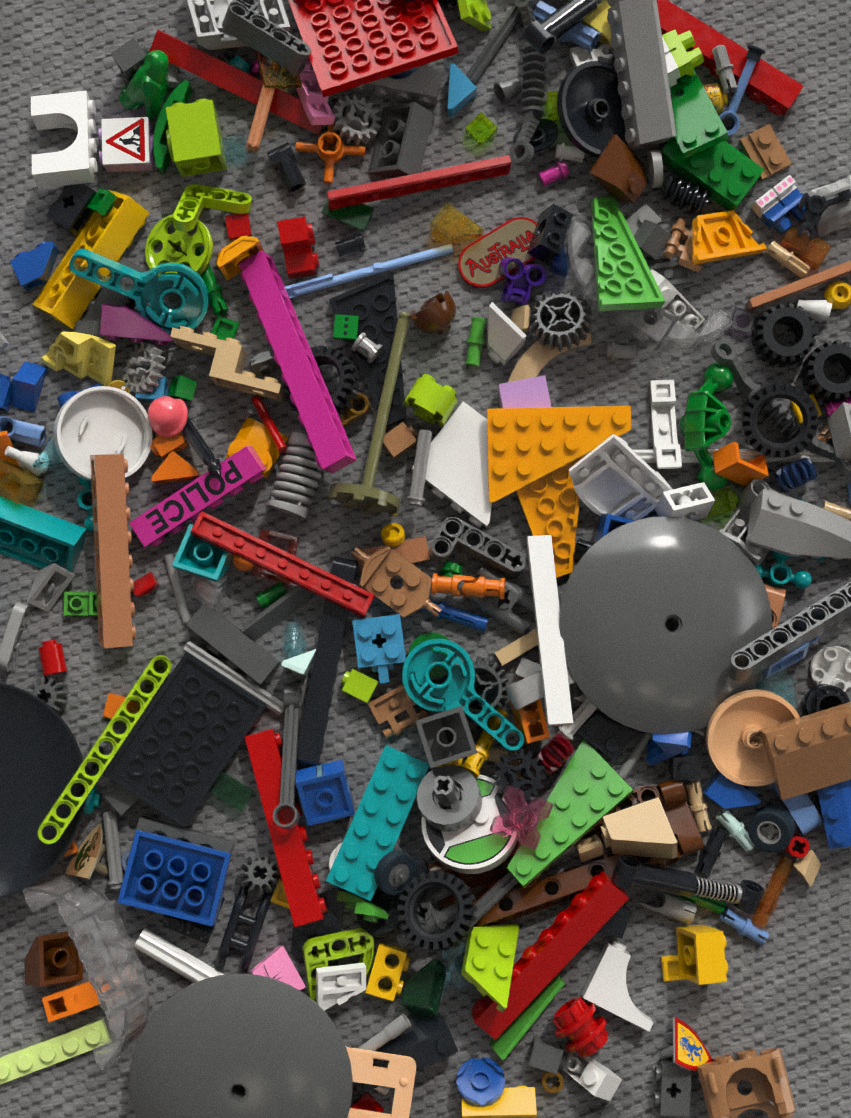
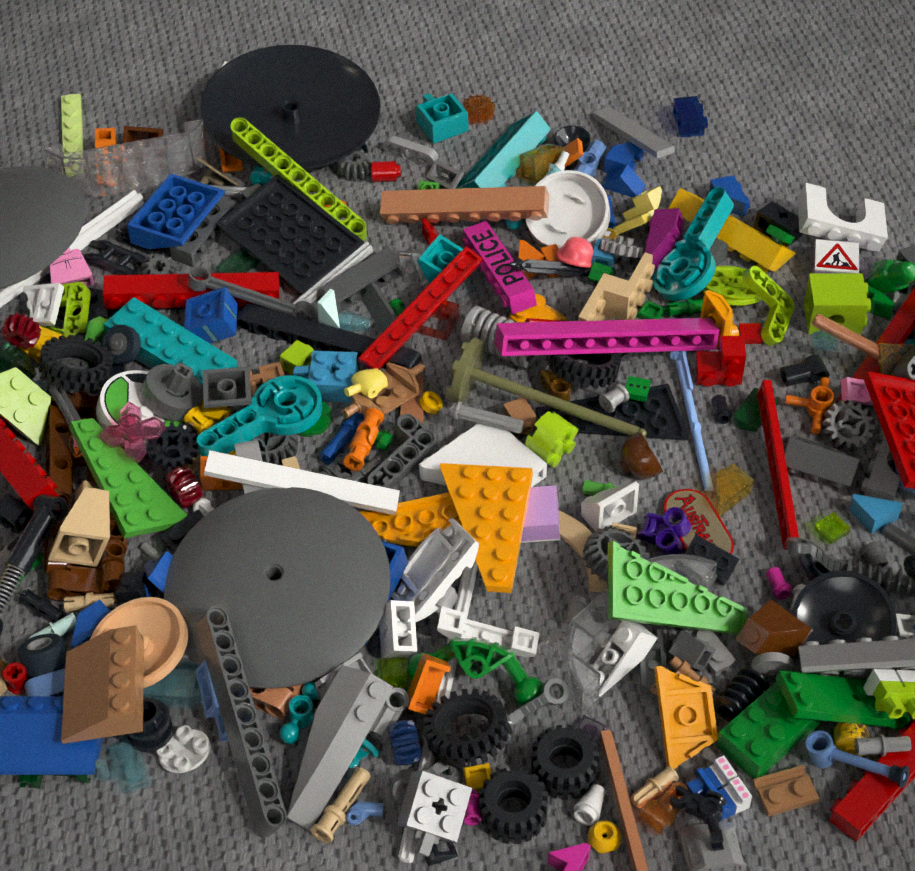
camera: 100 degrees right, 35 degrees down
(397, 989) = (21, 331): none -> dark red gear
(399, 597) = (367, 382): none -> light yellow piece

